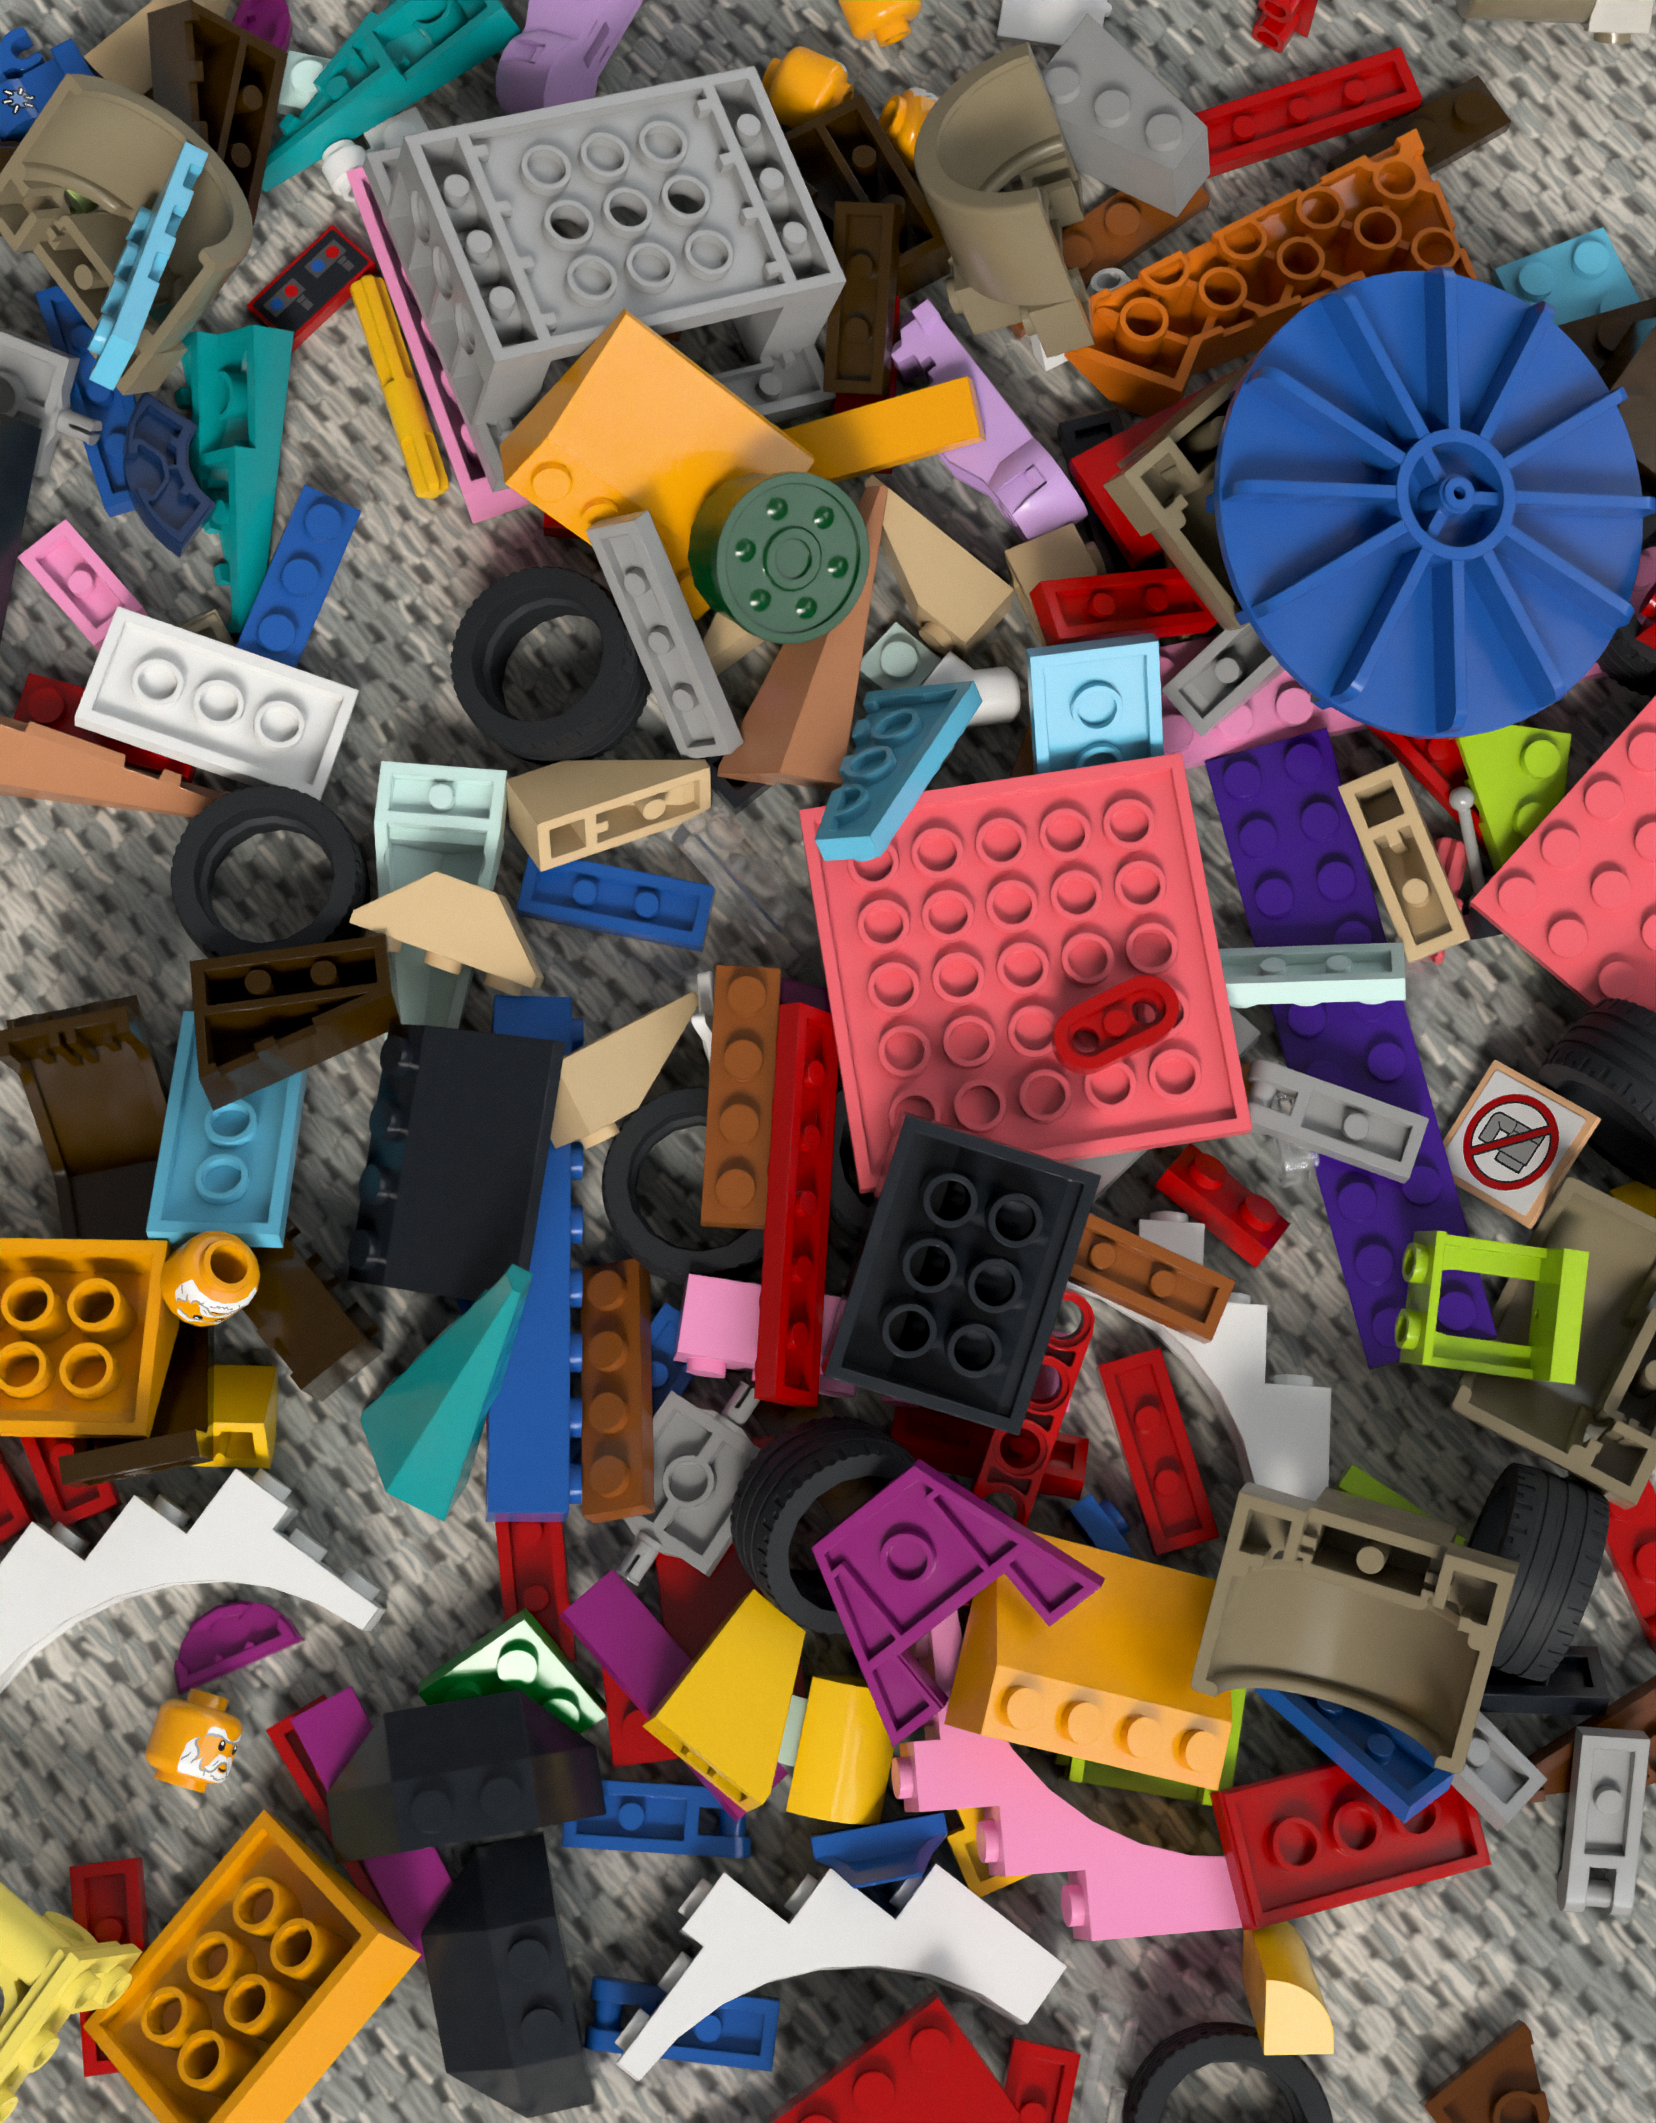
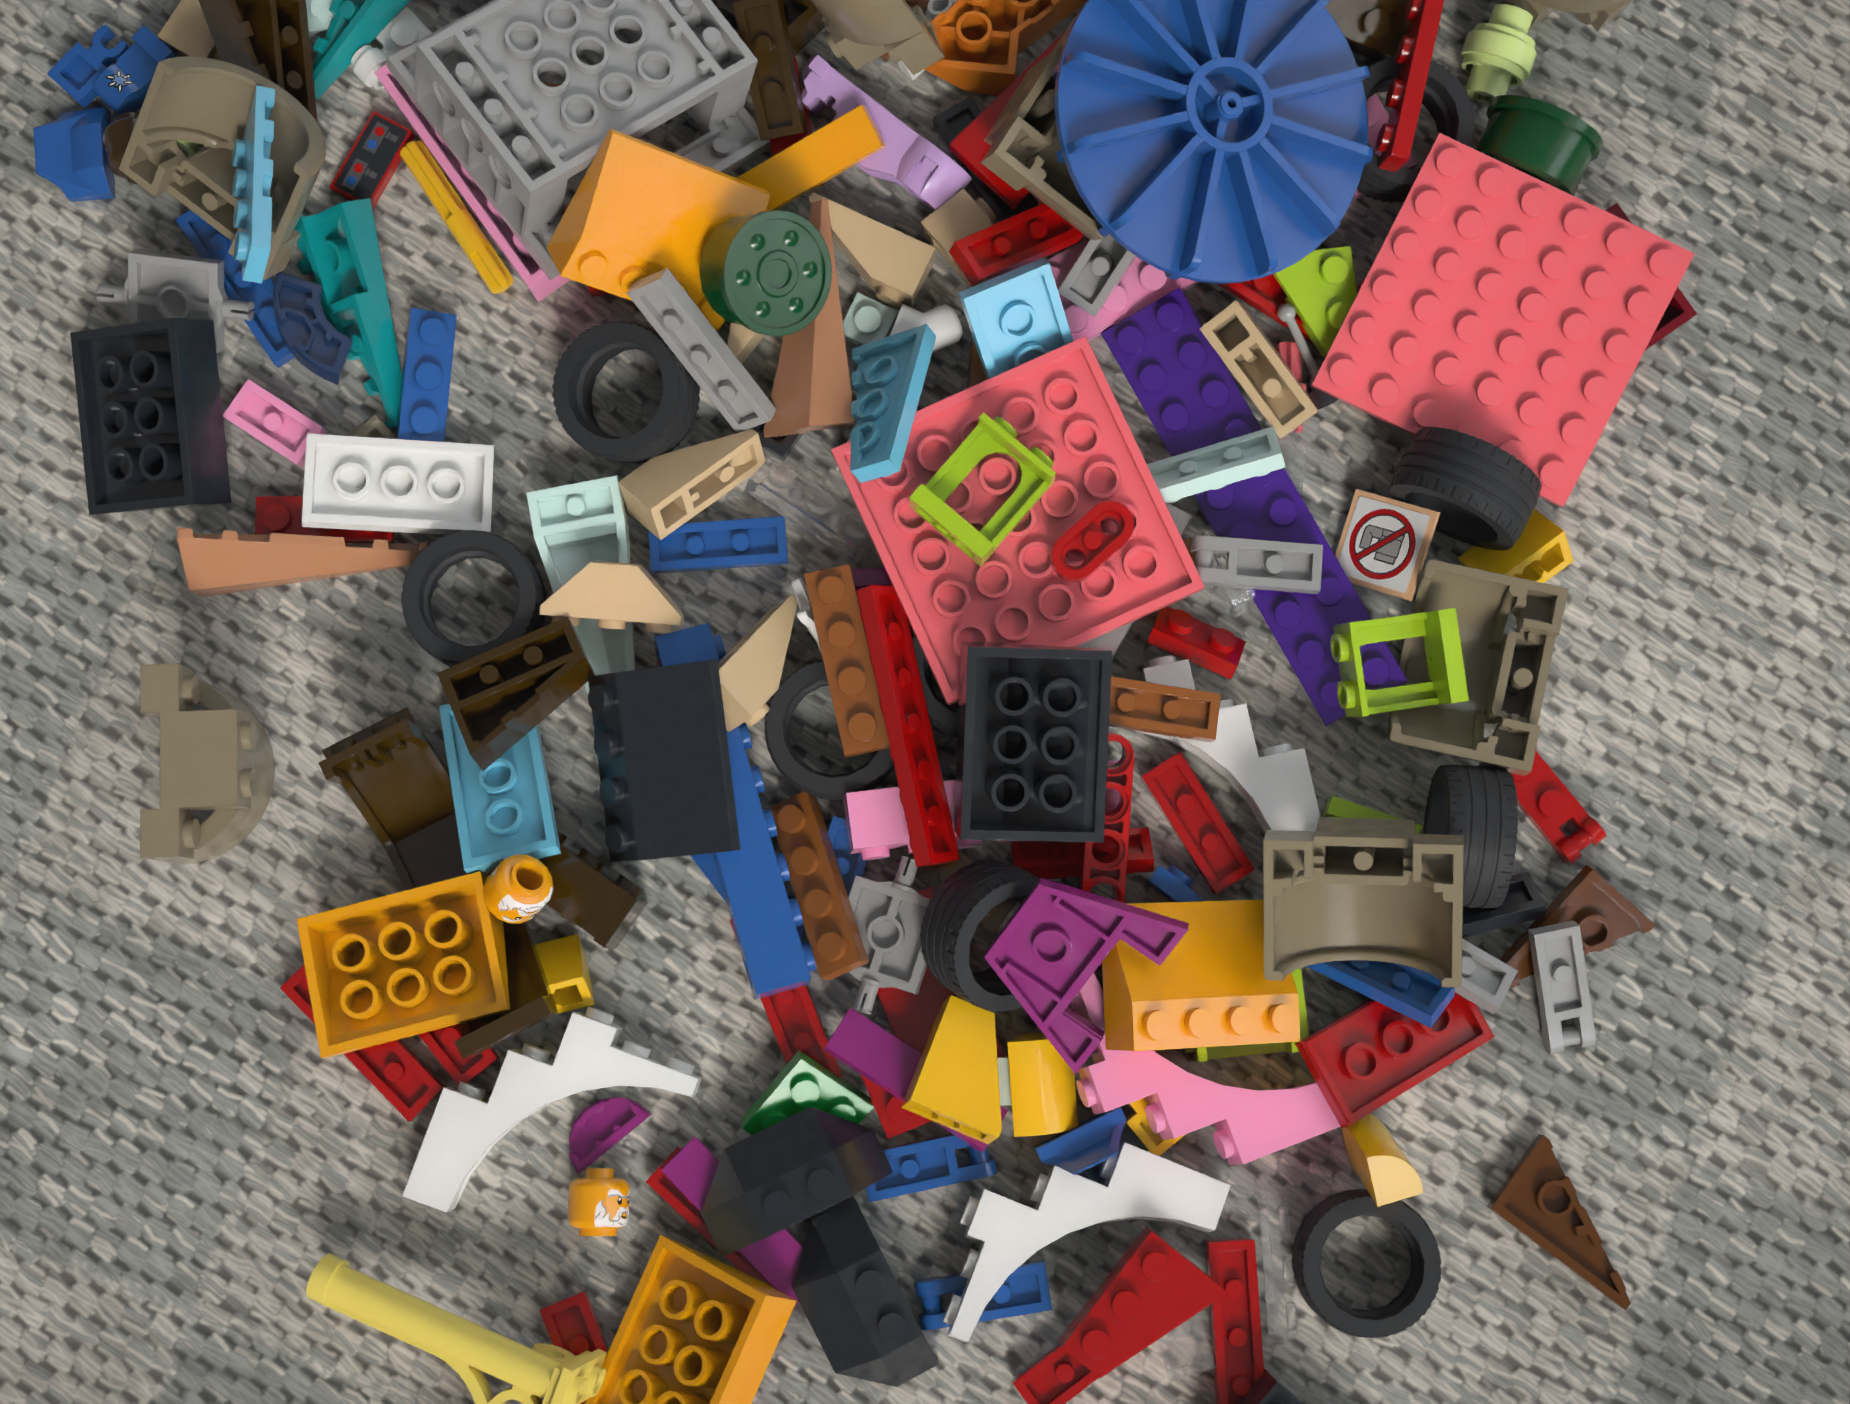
camera: 15 degrees left, 5 degrees up
(434, 1413) = (698, 937): teal wedge -> none
(1010, 851) = (987, 438): none -> lime panel

